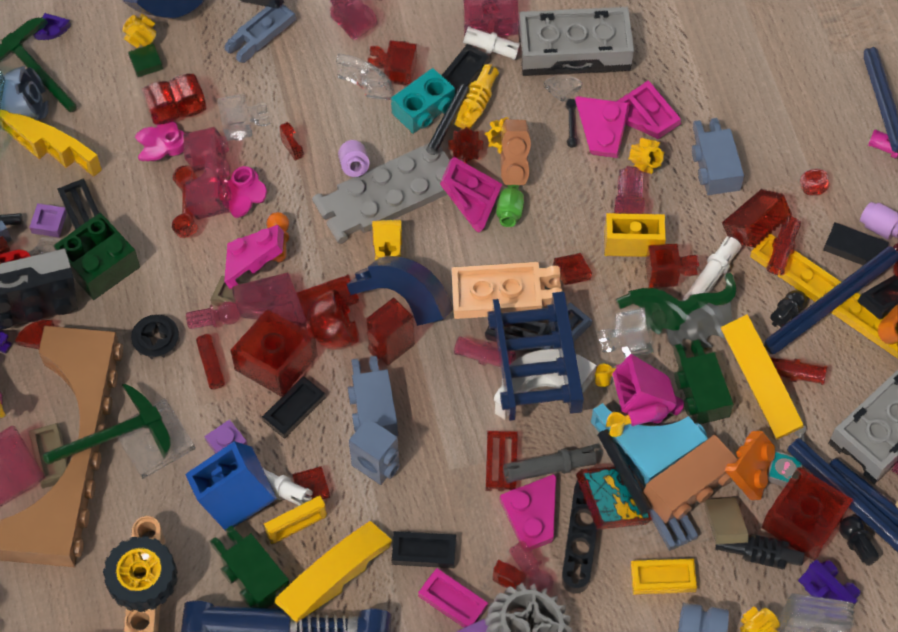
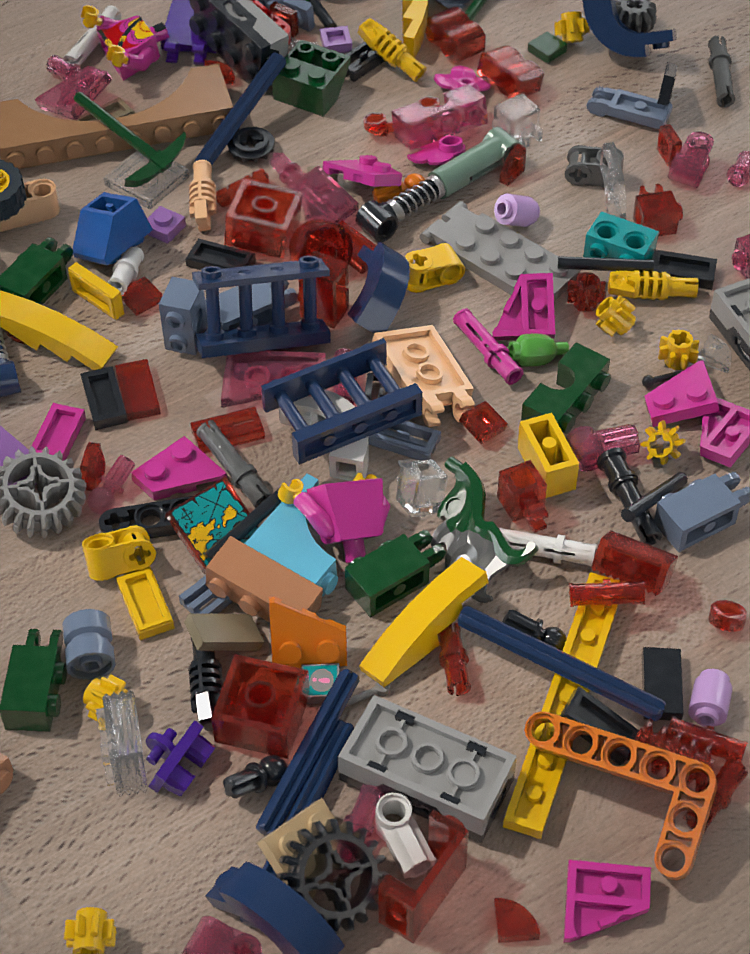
camera: 70 degrees right, 10 degrees down
(93, 178) = (390, 48): none -> yellow hinge
(96, 121) = (455, 34): none -> clear red brick
(122, 327) = (242, 108): none -> dark blue axle
(207, 396) = (202, 195): none -> light nougat hinge
(269, 151) = (383, 219): none -> piece
(320, 86) = (589, 165): none -> dark grey piece
(324, 22) = (668, 143): none -> clear red tile
(405, 383) = (278, 333): none -> dark blue fence
(424, 517) = (137, 389): none -> clear red tile
(455, 410) = (249, 371): none -> clear pink wing
(491, 42) = (728, 272): white pin -> none
(515, 152) = (590, 319): nougat brick -> none
(526, 231) = (506, 367): none -> dark pink pin
(554, 108) = (678, 349): none -> yellow gear
(556, 181) = (582, 375): none -> dark green arch
(613, 573) = (116, 554): none -> yellow piece
(671, 197) = (624, 484): none -> black pin
(698, 181) = (651, 498): none -> black bar

